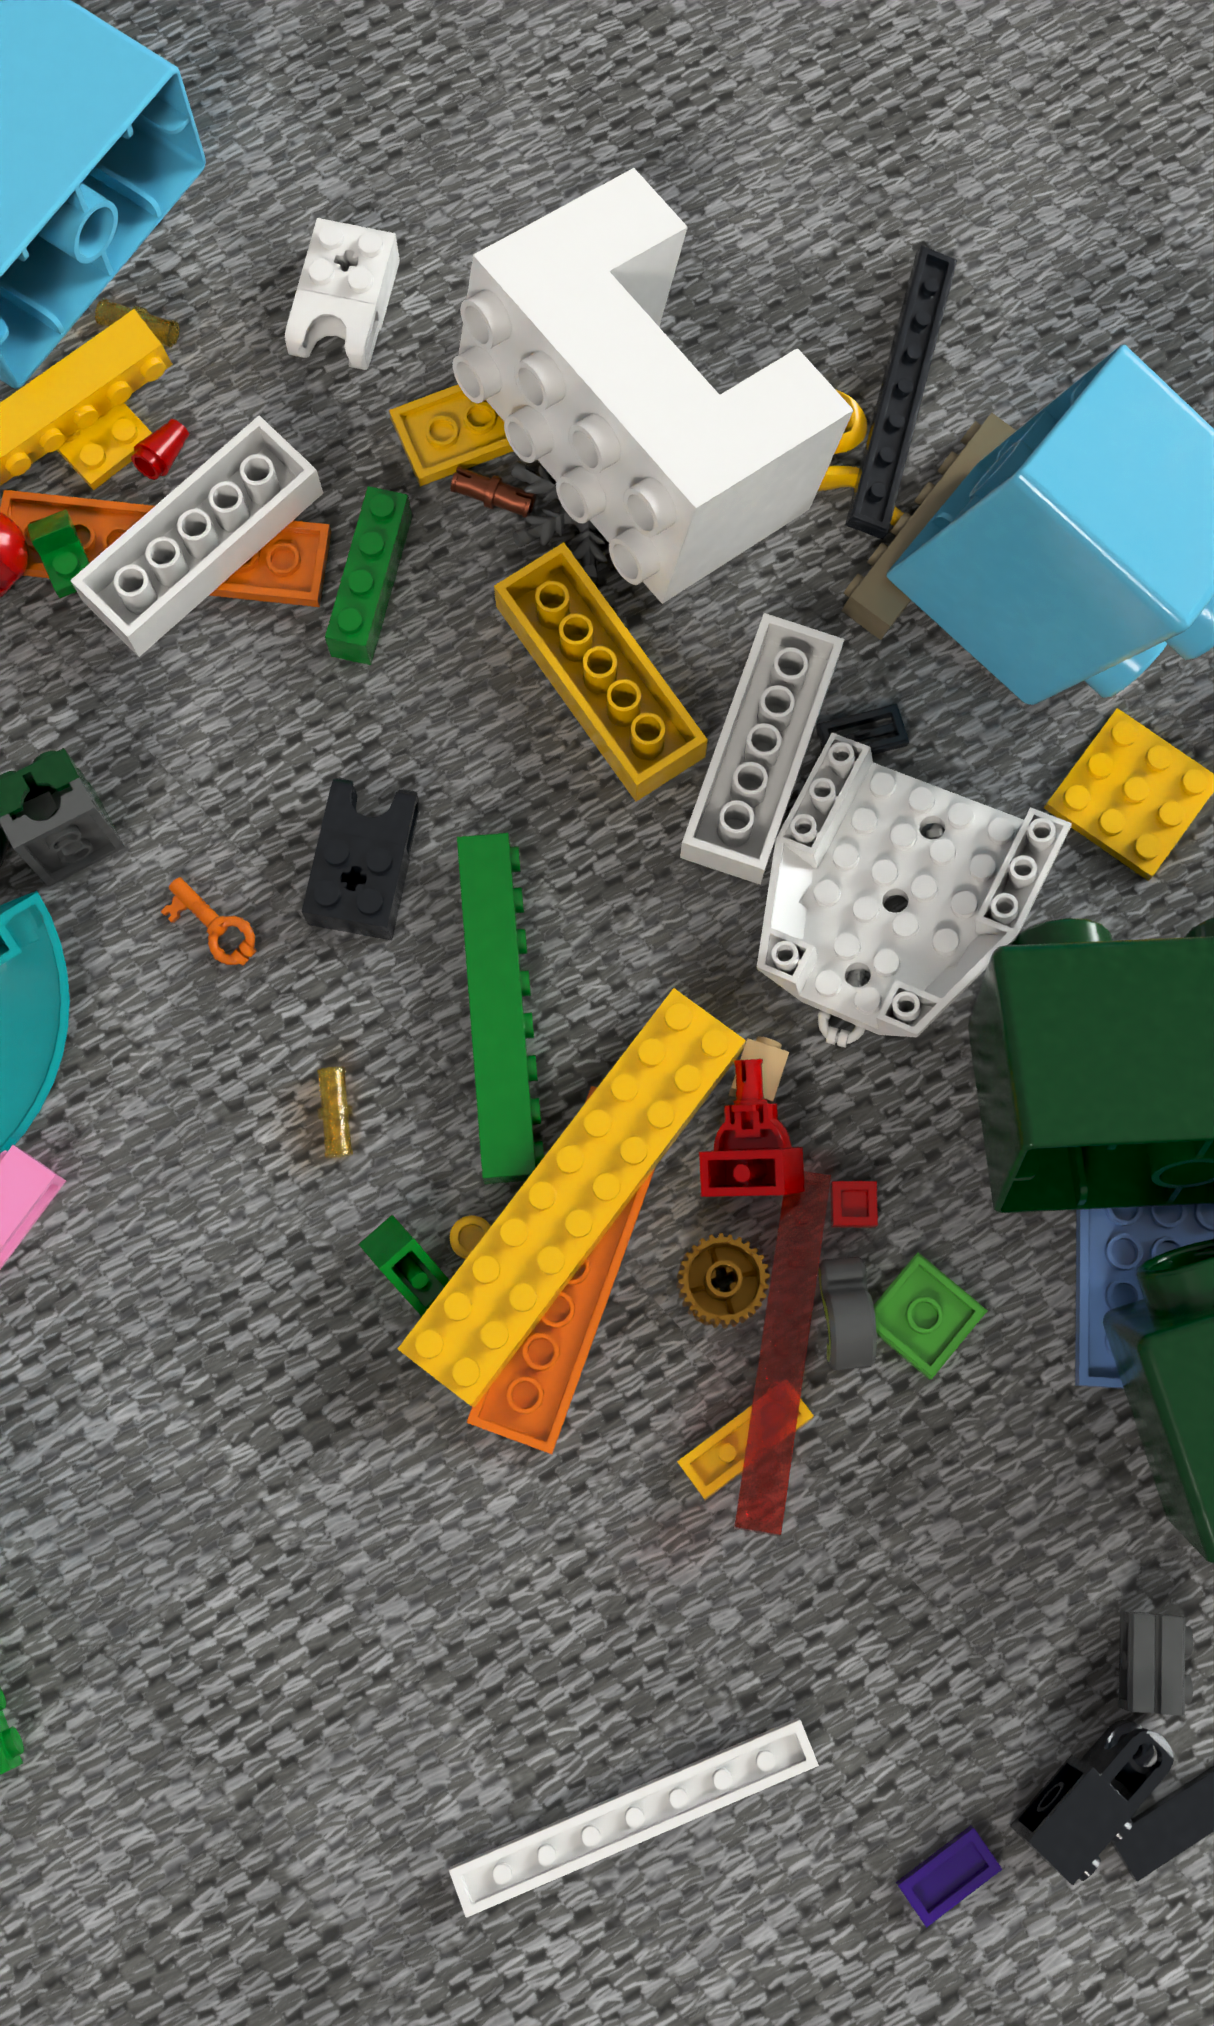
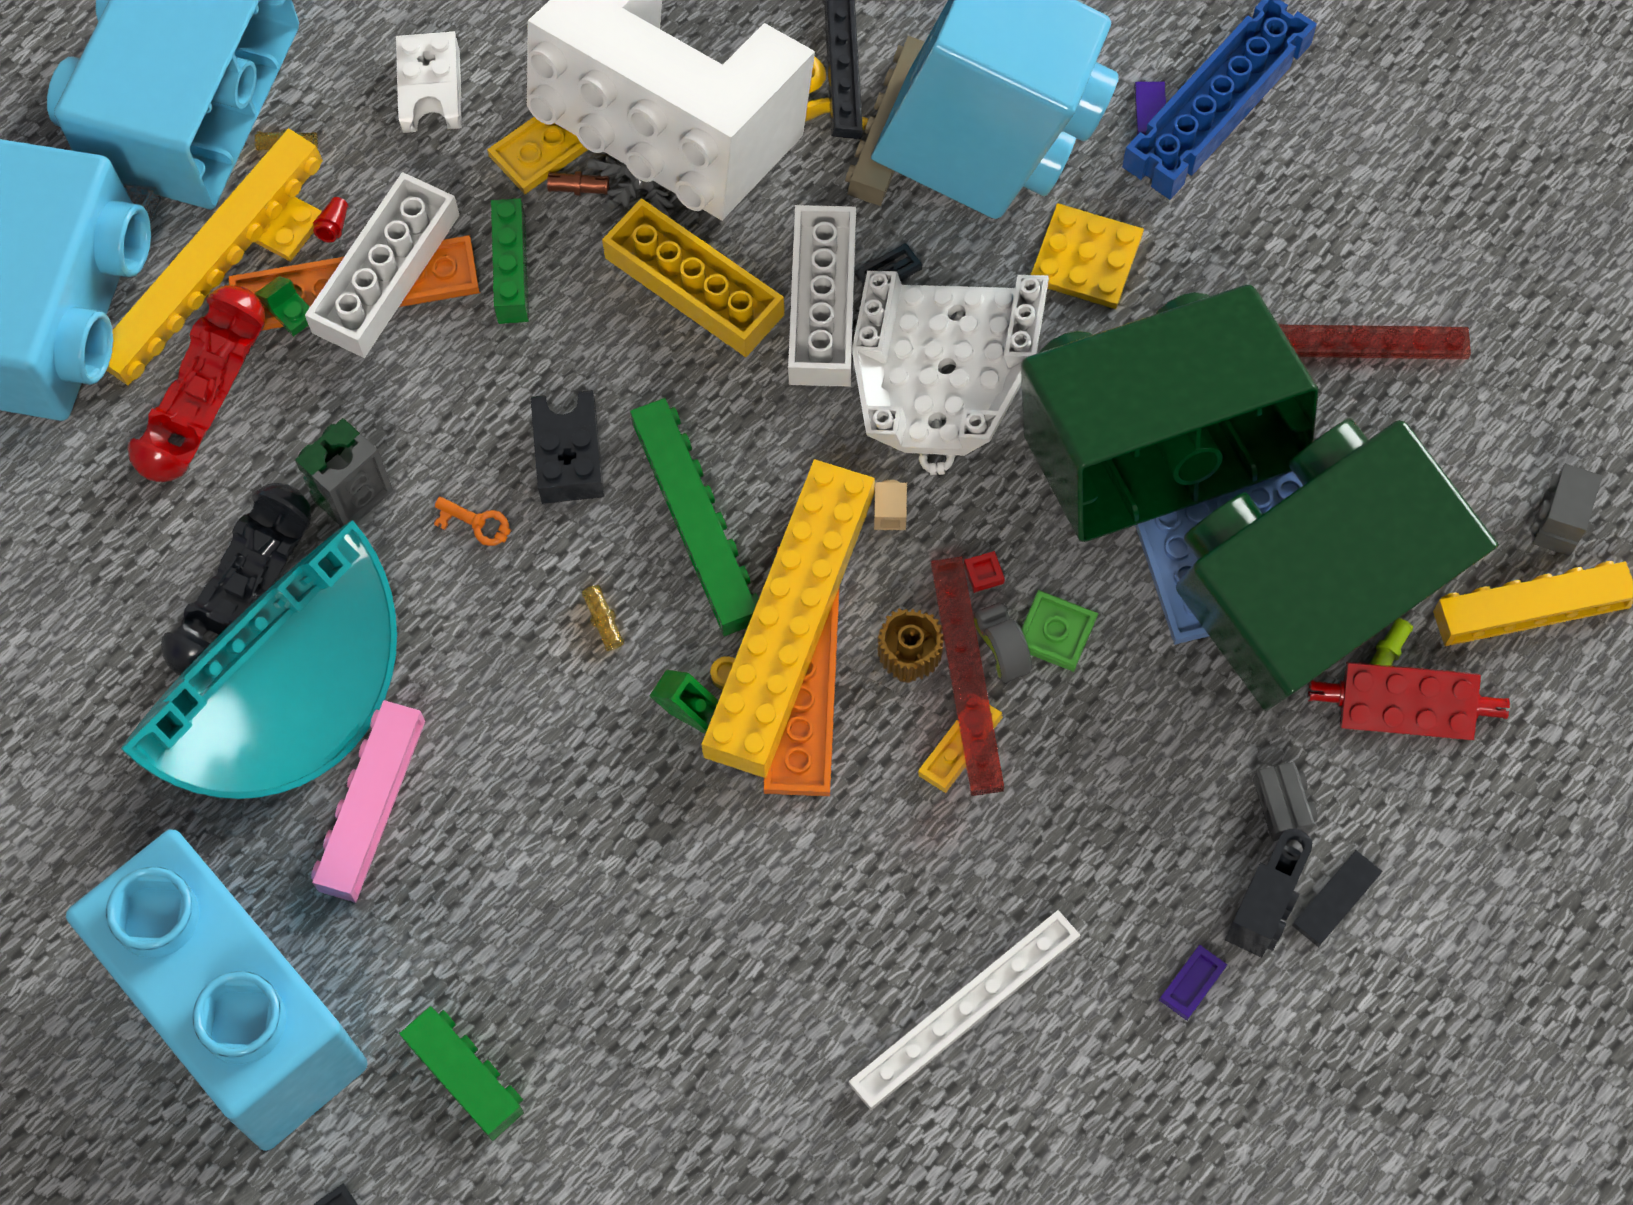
camera: 15 degrees left, 10 degrees down
(751, 1146) = (901, 549): red brick -> none

